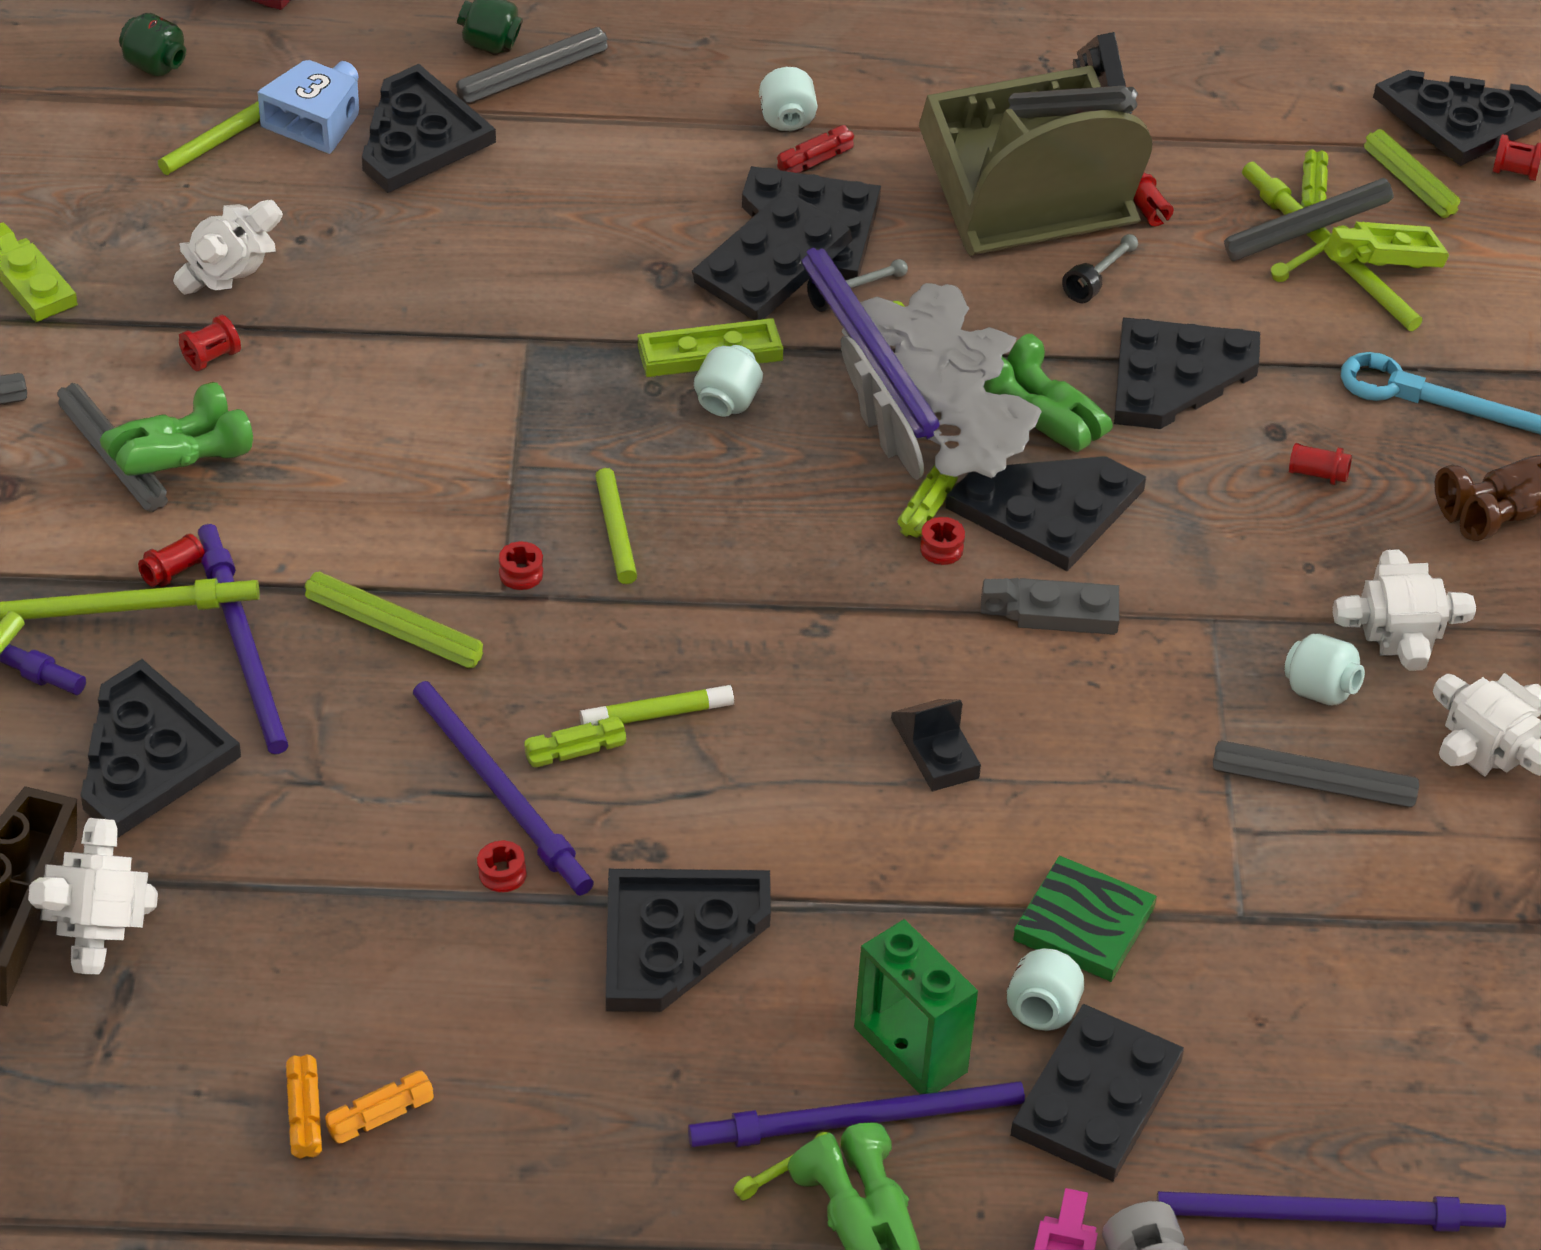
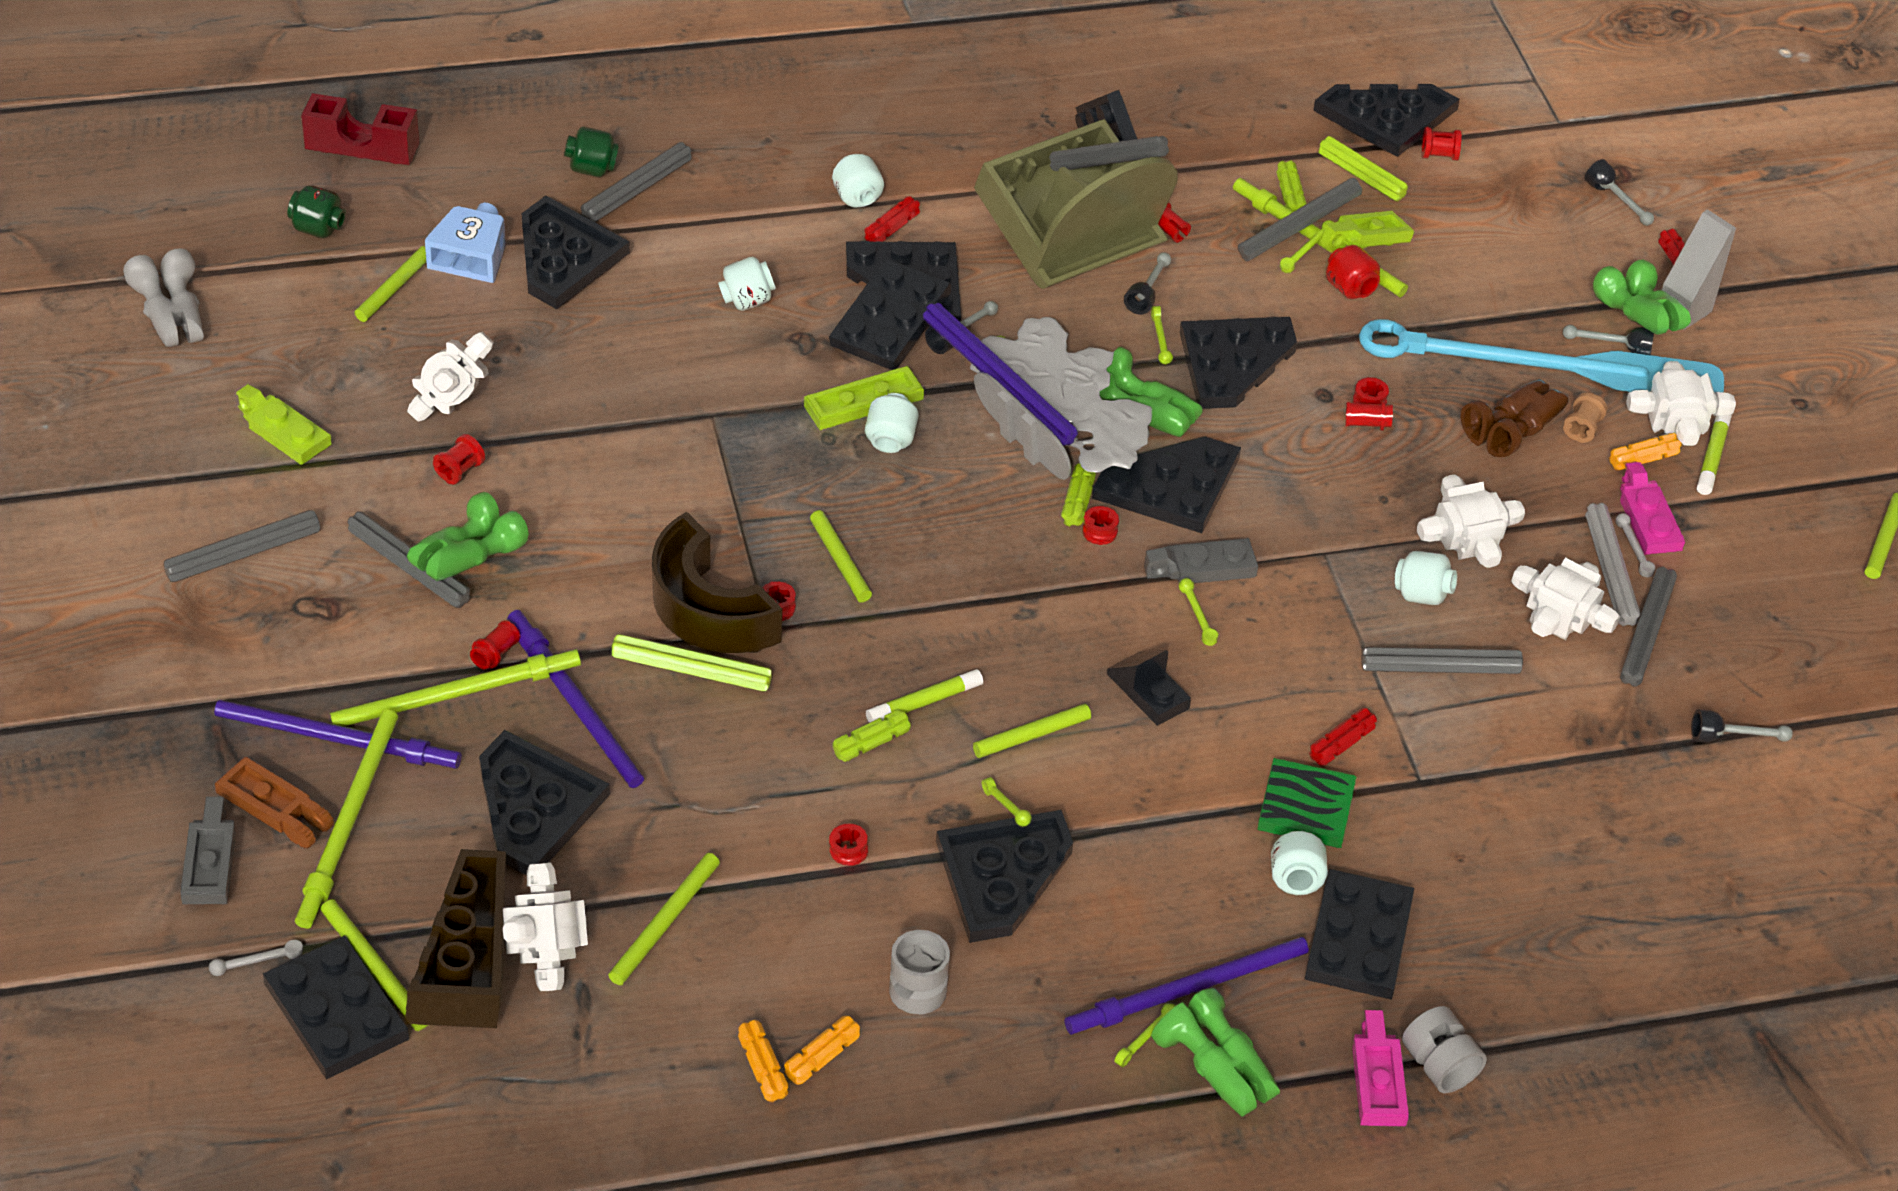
camera: 15 degrees left, 0 degrees up
(250, 914) = (663, 919): none -> lime bar
(422, 564) = (704, 612): none -> dark brown brick
(524, 1034) = (919, 971): none -> light grey wheel
(552, 848) = (884, 823): dark purple bar -> none
(615, 196) = (747, 283): none -> light aqua head
(716, 870) = (1022, 817): none -> lime hinge
(773, 770) = (1031, 730): none -> lime bar
(934, 1021) = (1188, 908): green window -> none
(1032, 693) = (1209, 635): none -> lime hinge
(1092, 355) = (1165, 356): none -> lime hinge
(1157, 845) = (1342, 736): none -> red axle
(1334, 430) = (1370, 386): none -> red bush
(1355, 291) = (1353, 272): none -> red head
(1442, 1213) = (1637, 976): dark purple bar -> none

